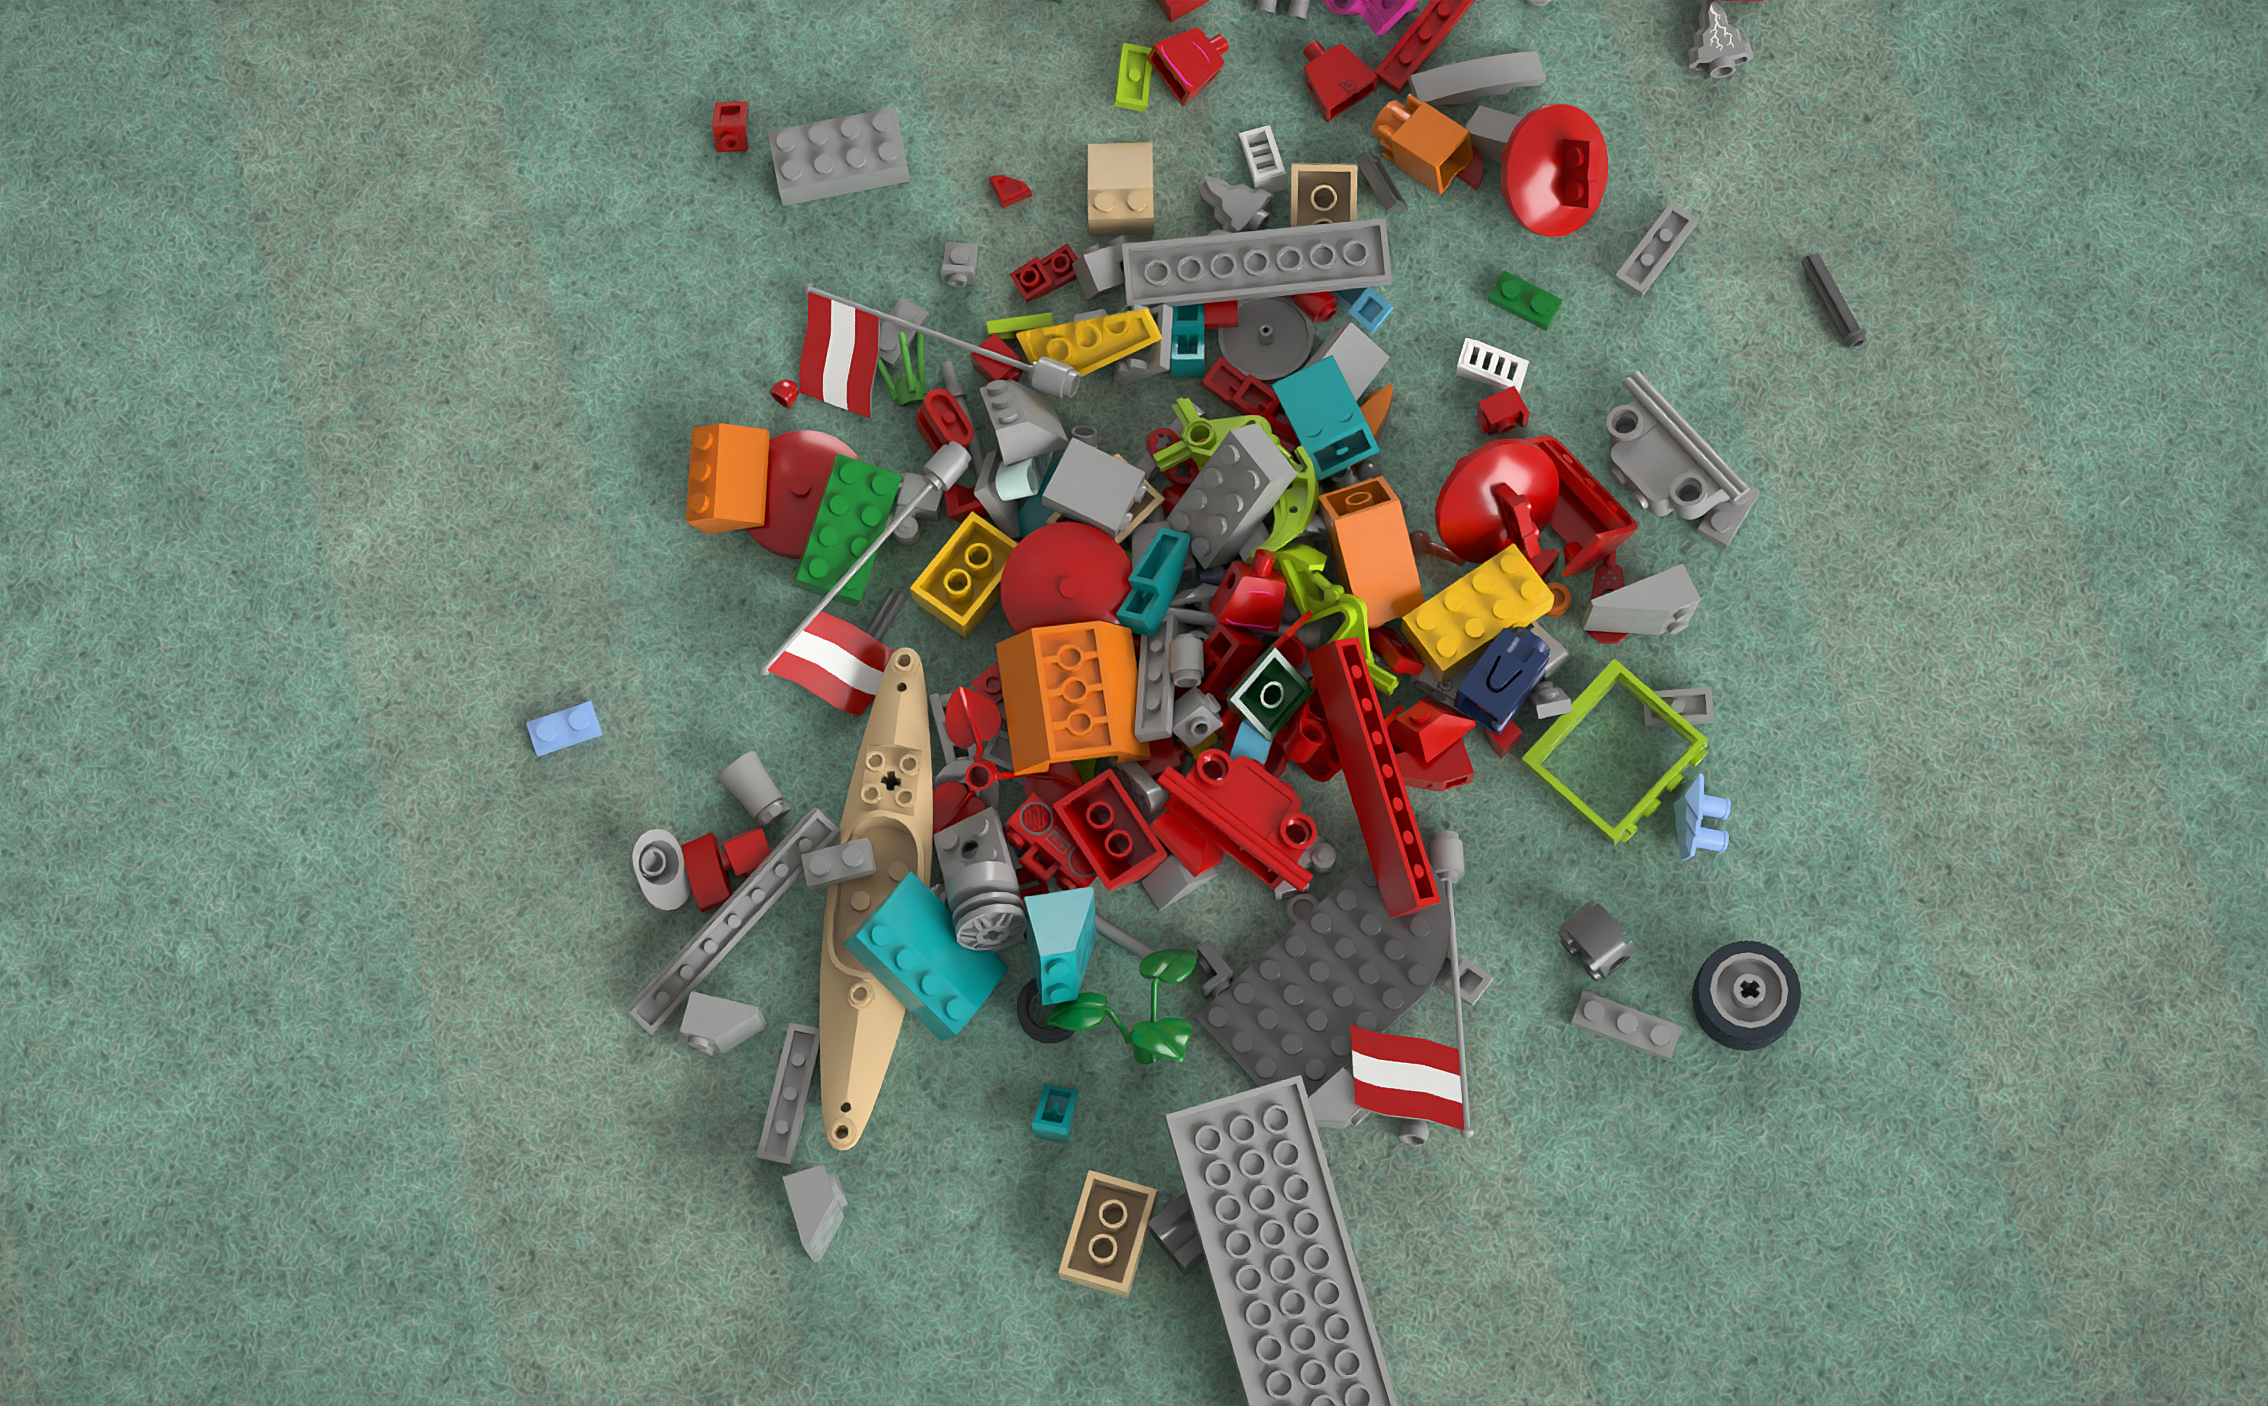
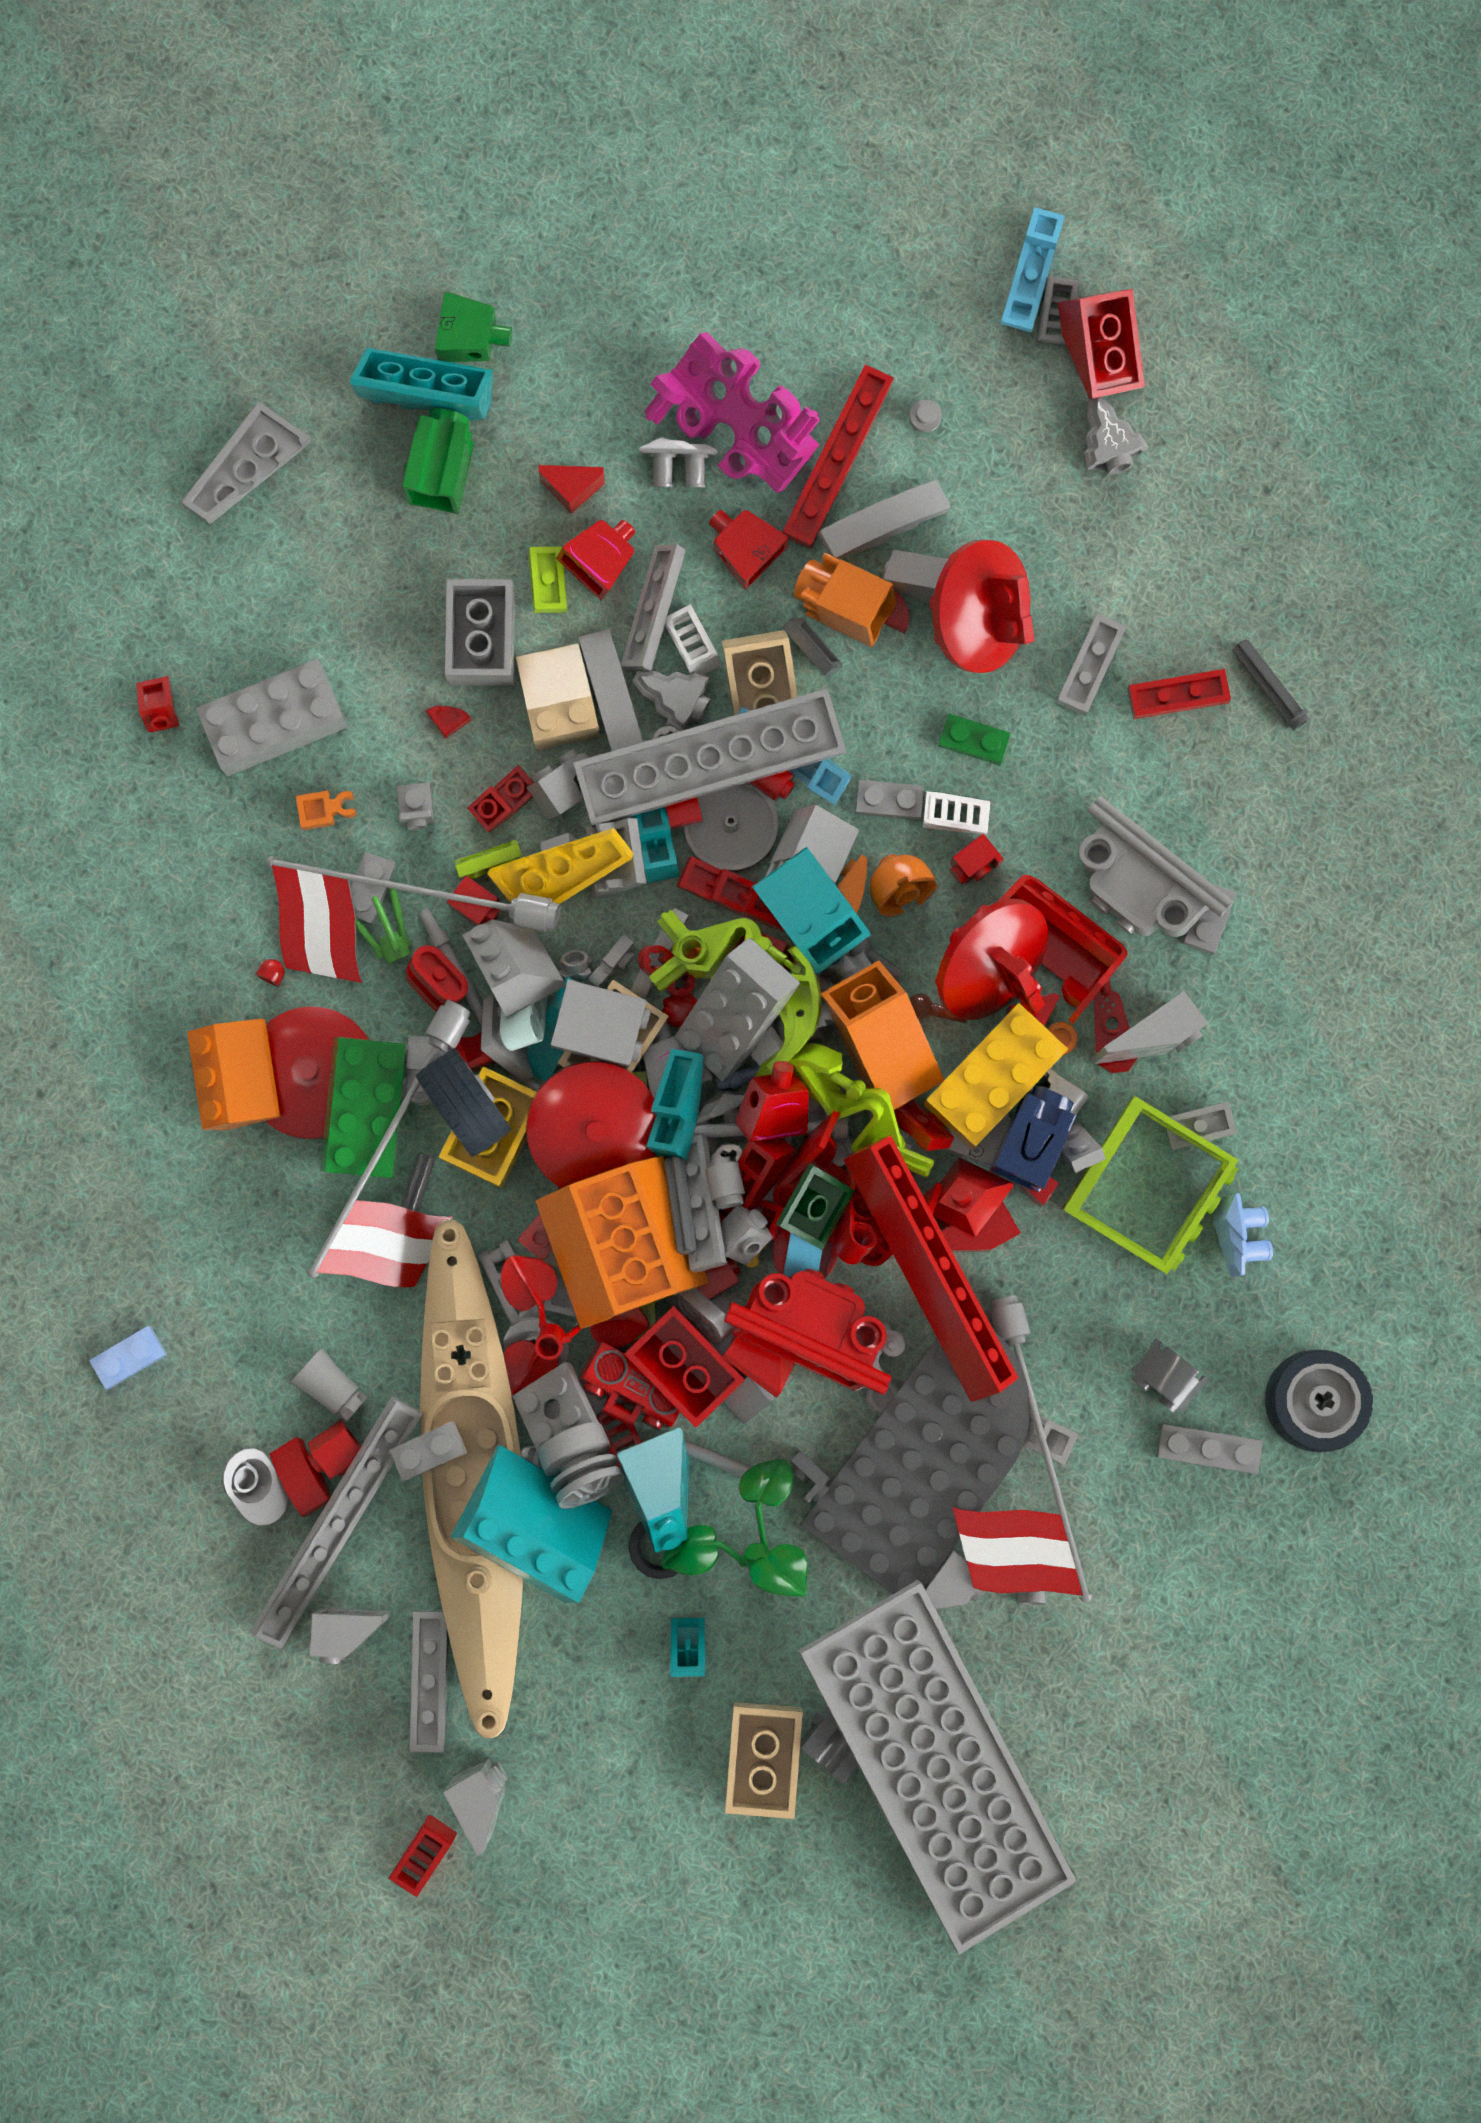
camera: 20 degrees left, 10 degrees up
(747, 1245) = (434, 1836): none -> red slope
(865, 249) = (319, 809): none -> orange plate
(946, 530) = (463, 1102): none -> black wheel
(1057, 112) = (480, 632): none -> light grey brick
(1126, 439) = (618, 956): none -> light grey plate
(1137, 674) = (680, 1205): none -> dark grey axle
(1173, 186) = (610, 689): none -> light grey slope
(1231, 121) = (653, 607): none -> light grey plate
(1422, 419) = (899, 882): none -> orange cylinder
(1428, 342) = (889, 799): none -> light grey plate
(1739, 292) = (1179, 694): none -> red plate

